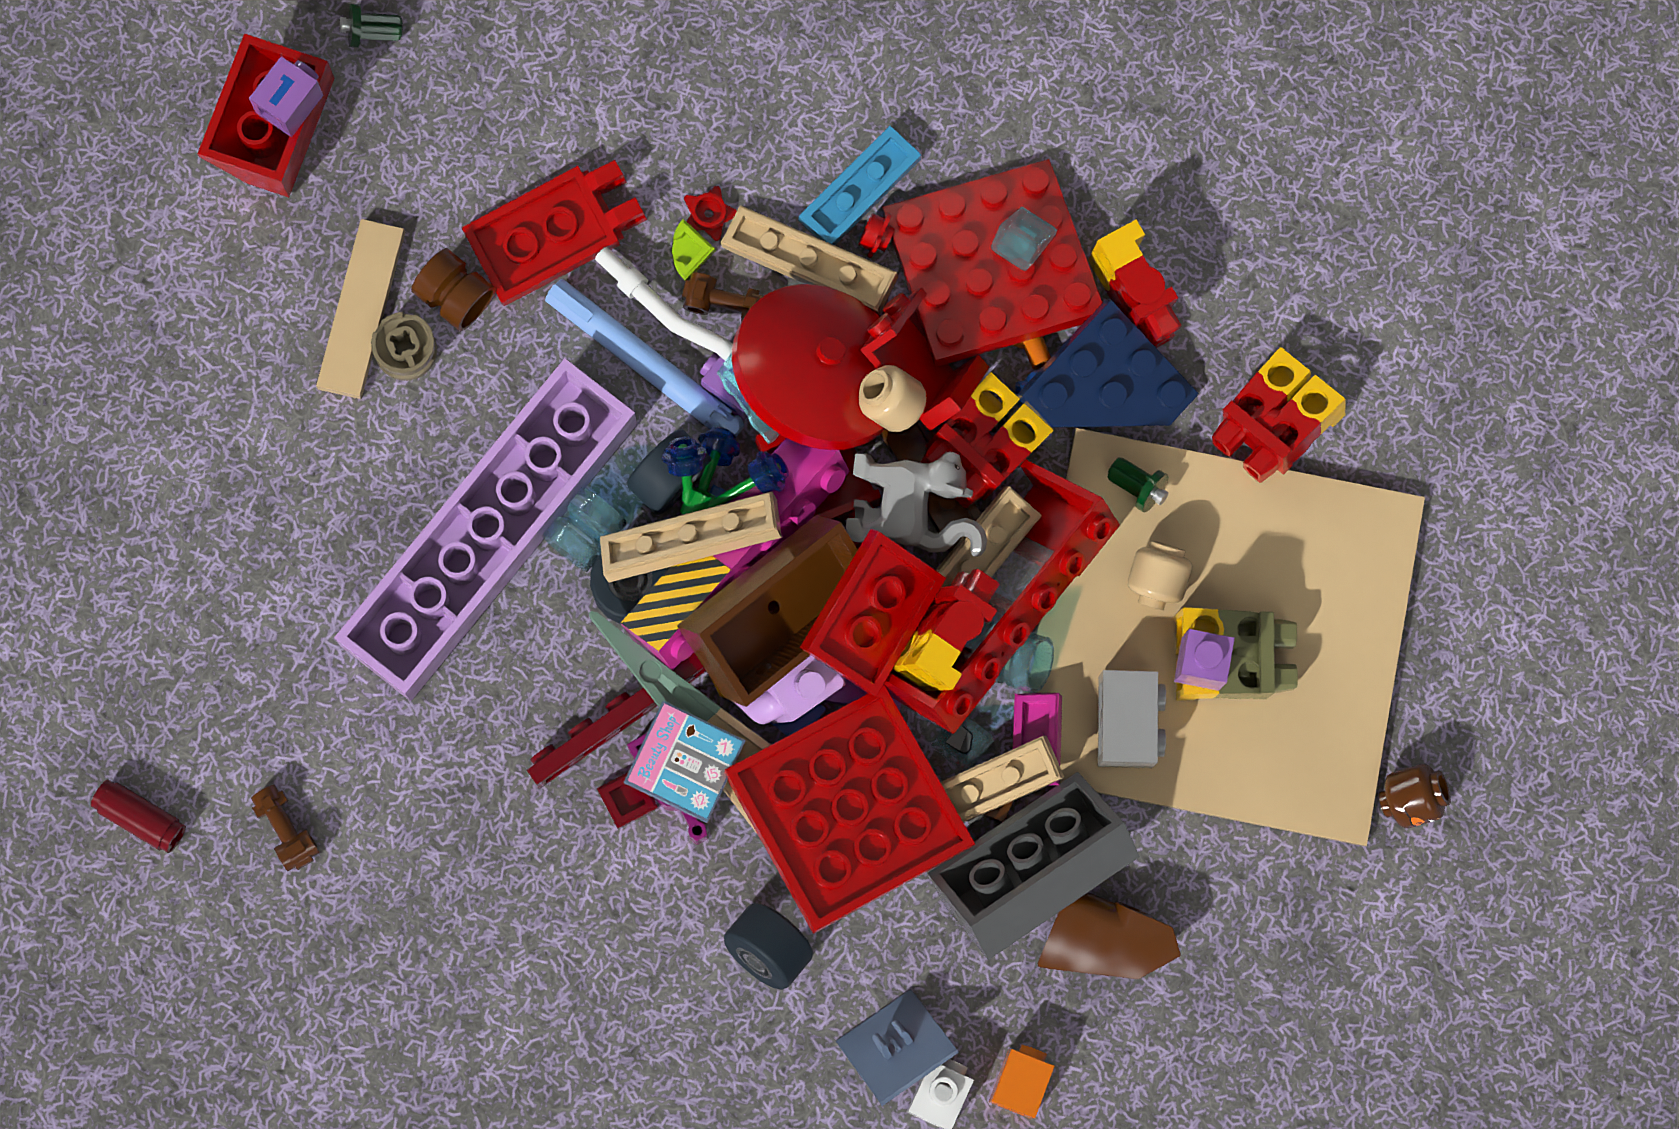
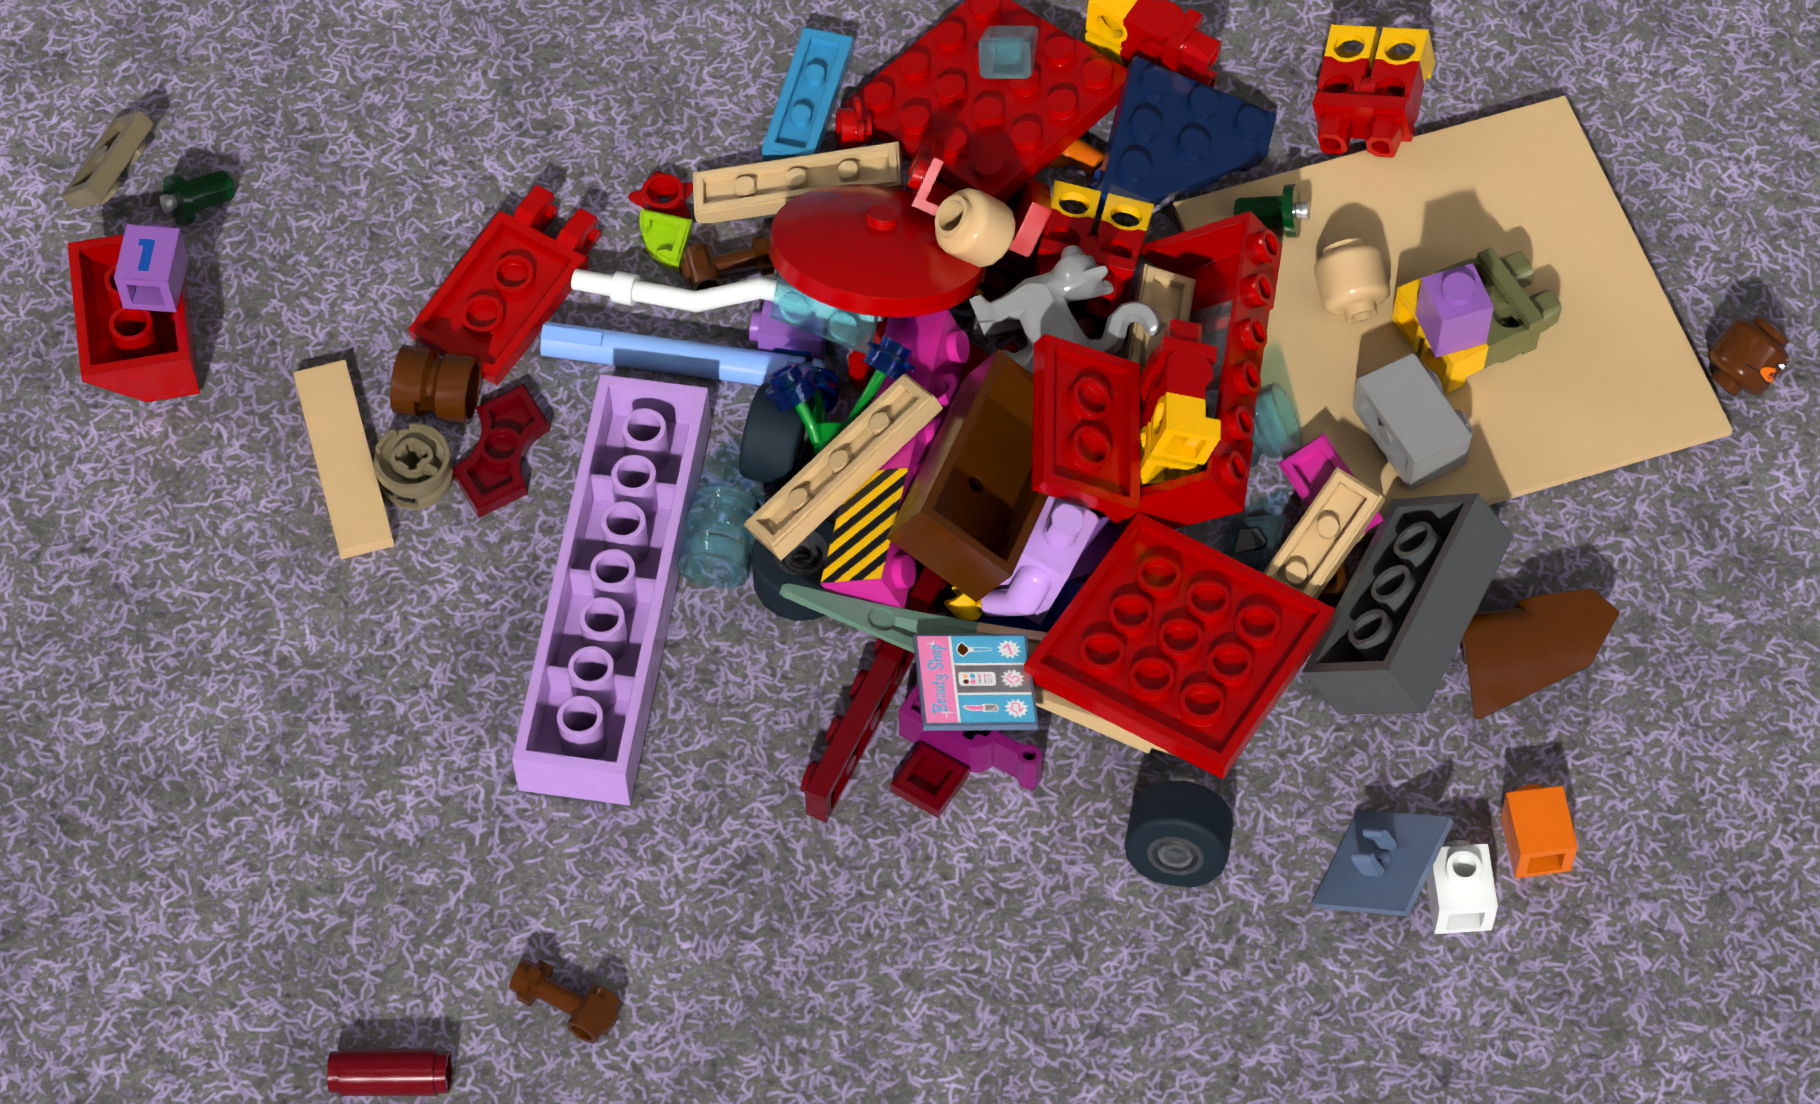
camera: 20 degrees left, 20 degrees down
(459, 380) = (493, 470): none -> dark red tile

